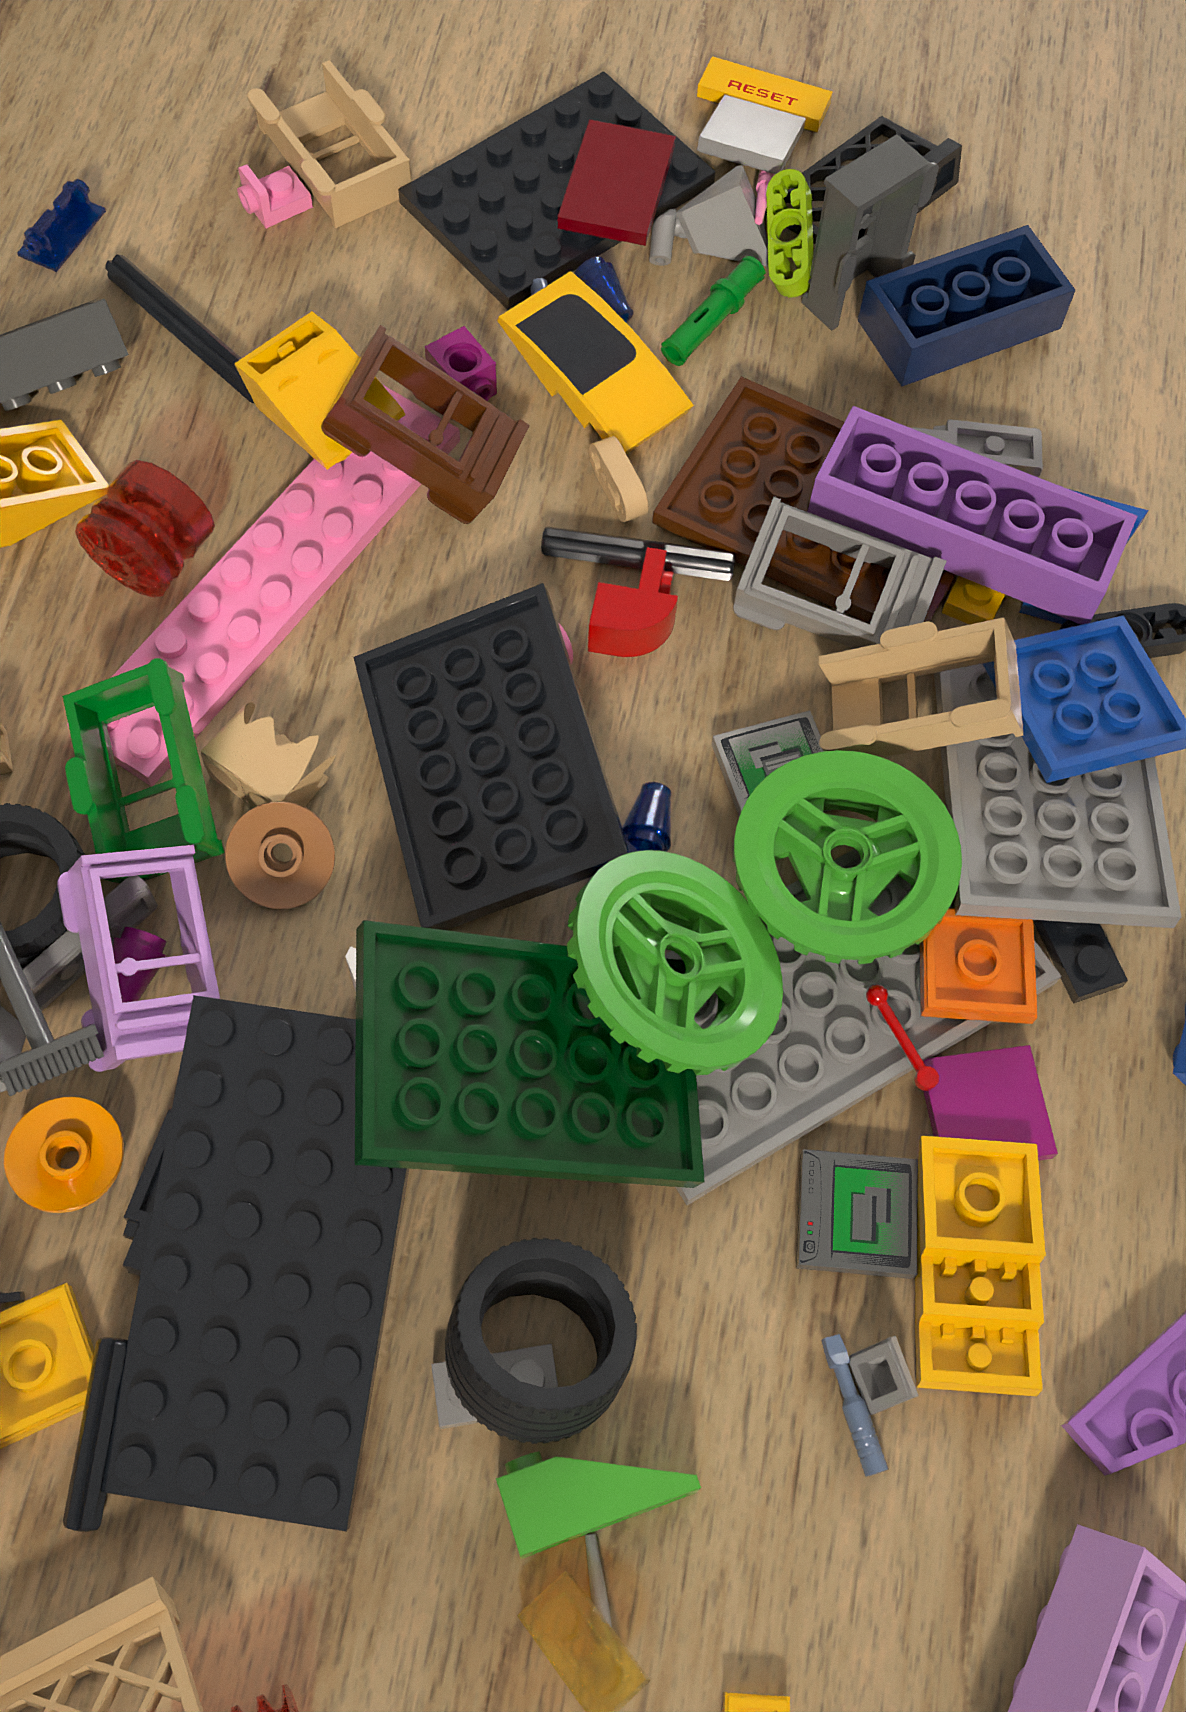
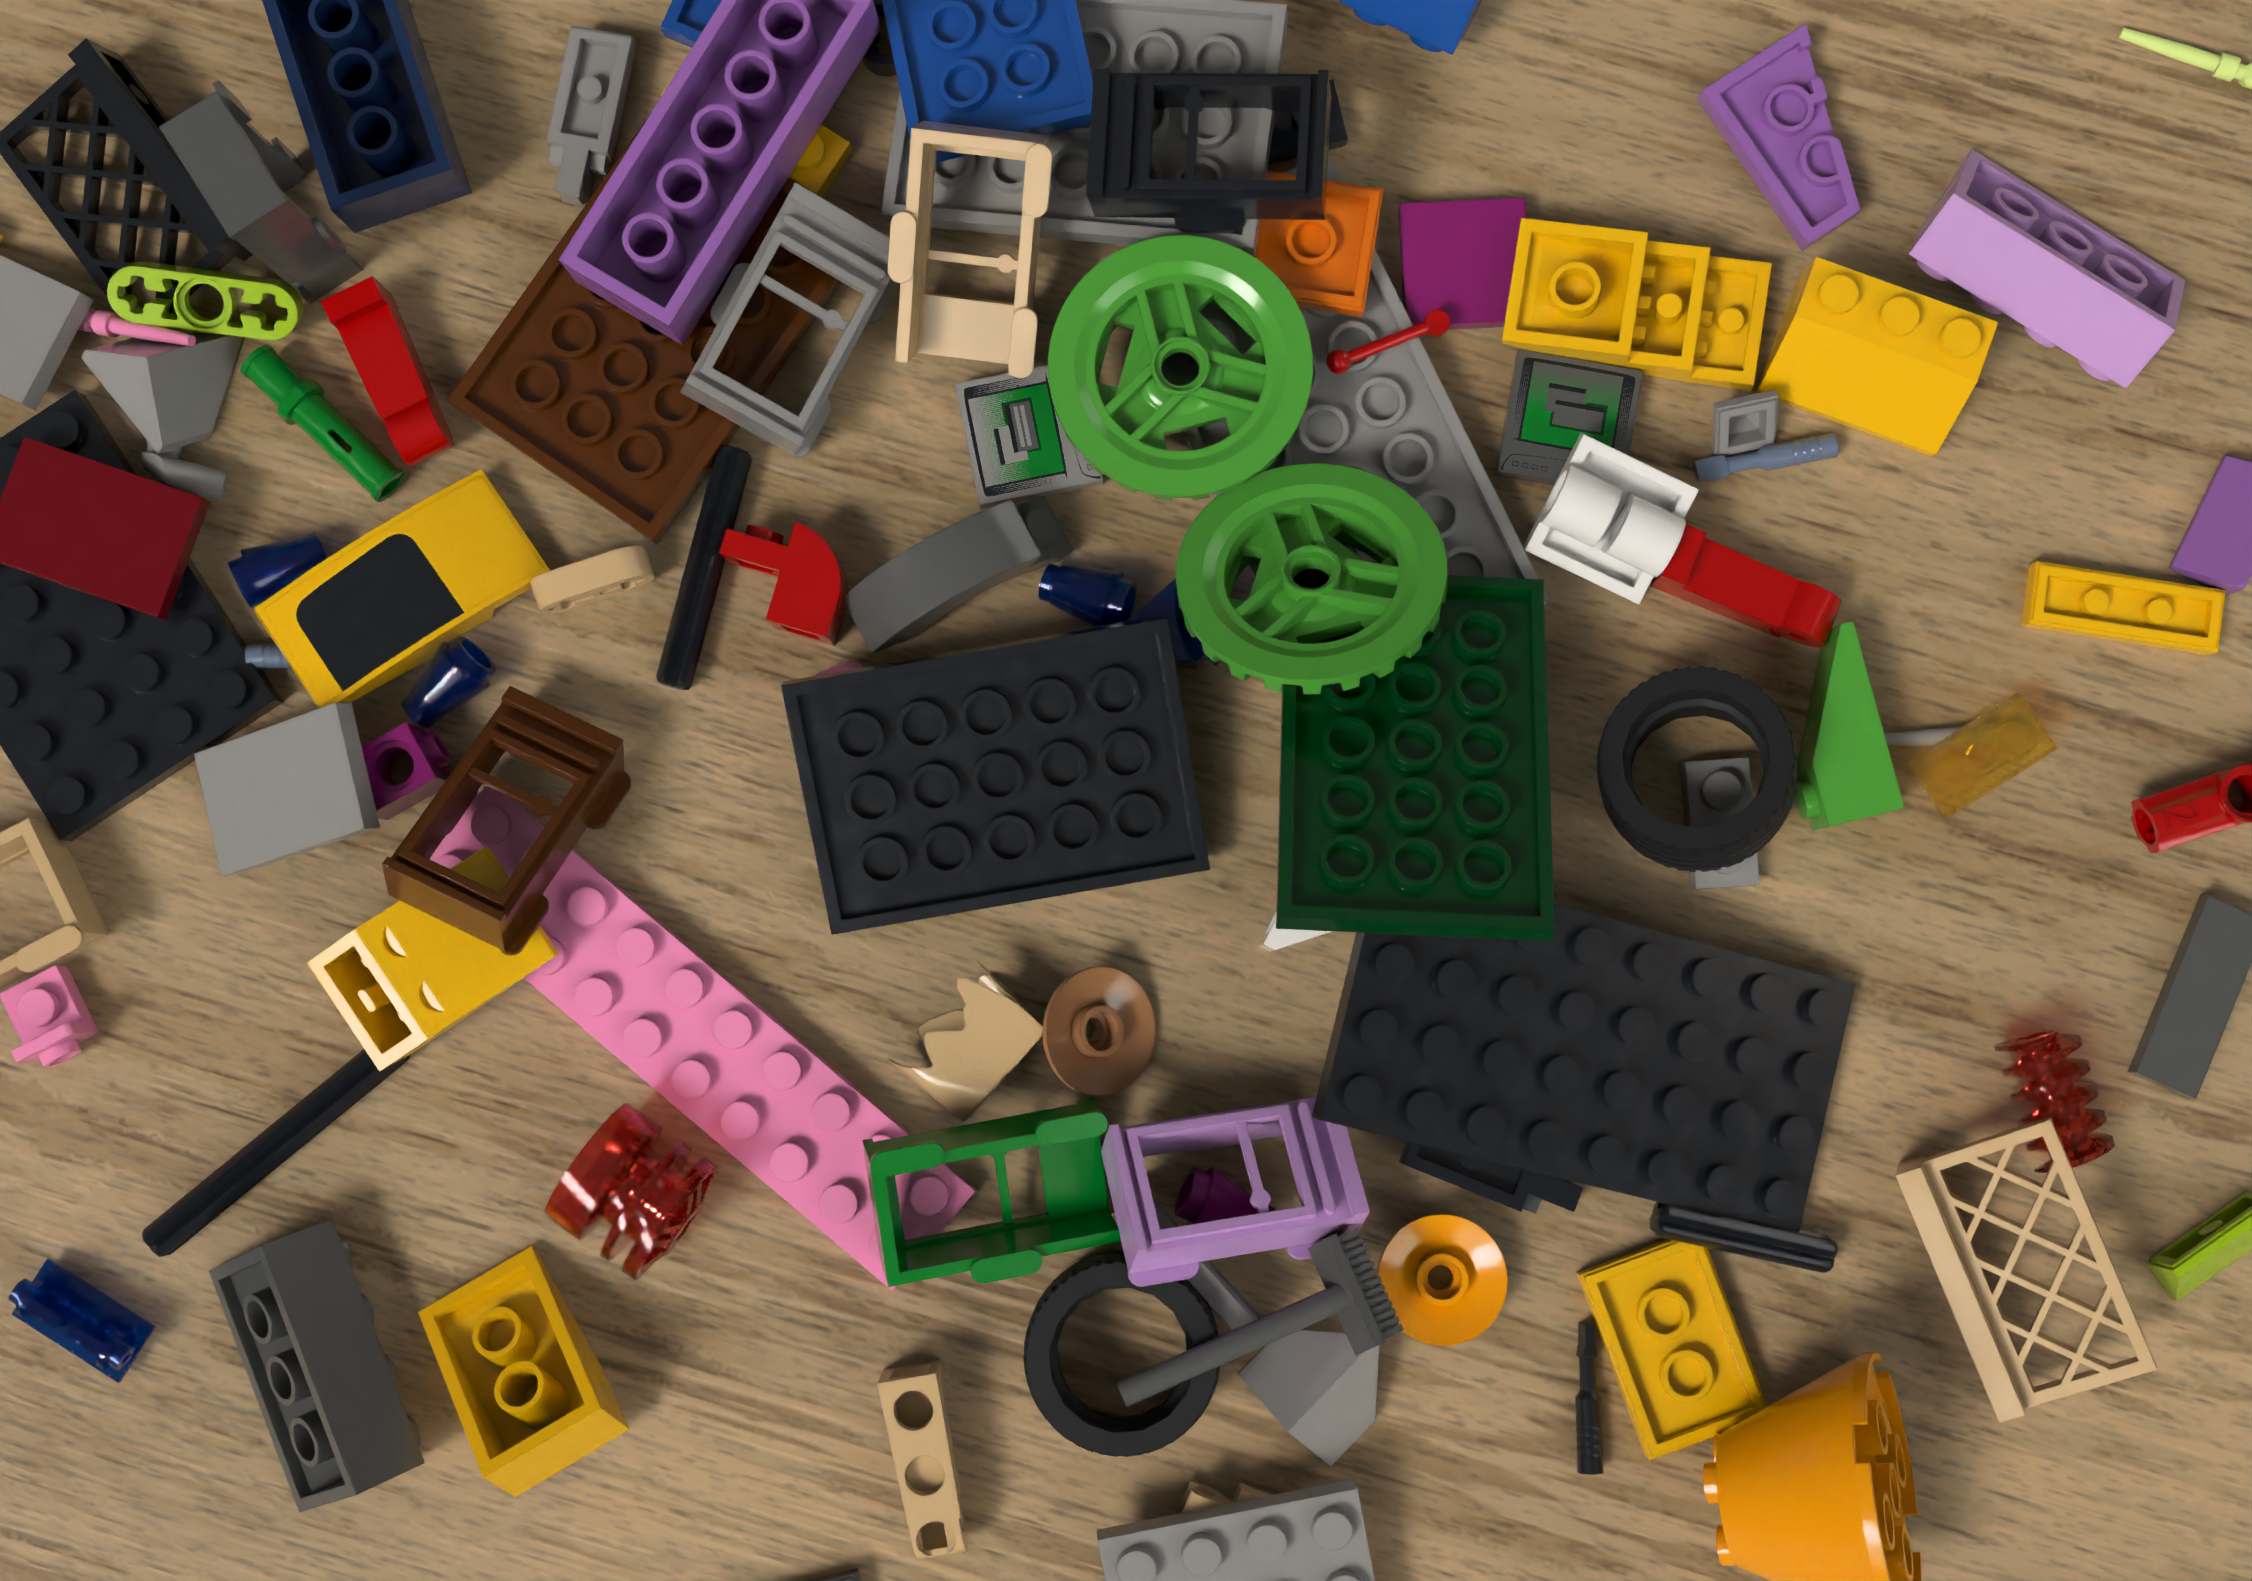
camera: 75 degrees left, 20 degrees up
(441, 303) = (287, 789): none -> light grey tile
(533, 398) = (450, 679): none -> clear blue cone
(663, 713) = (953, 567): none -> dark grey arch
(723, 1387) = (1747, 591): none -> red leg
(759, 344) = (390, 369): none -> red leg
(772, 1248) = (1611, 519): none -> white plate
(969, 1502) = (1876, 356): none -> yellow slope
(990, 865) = (1124, 140): none -> black piece

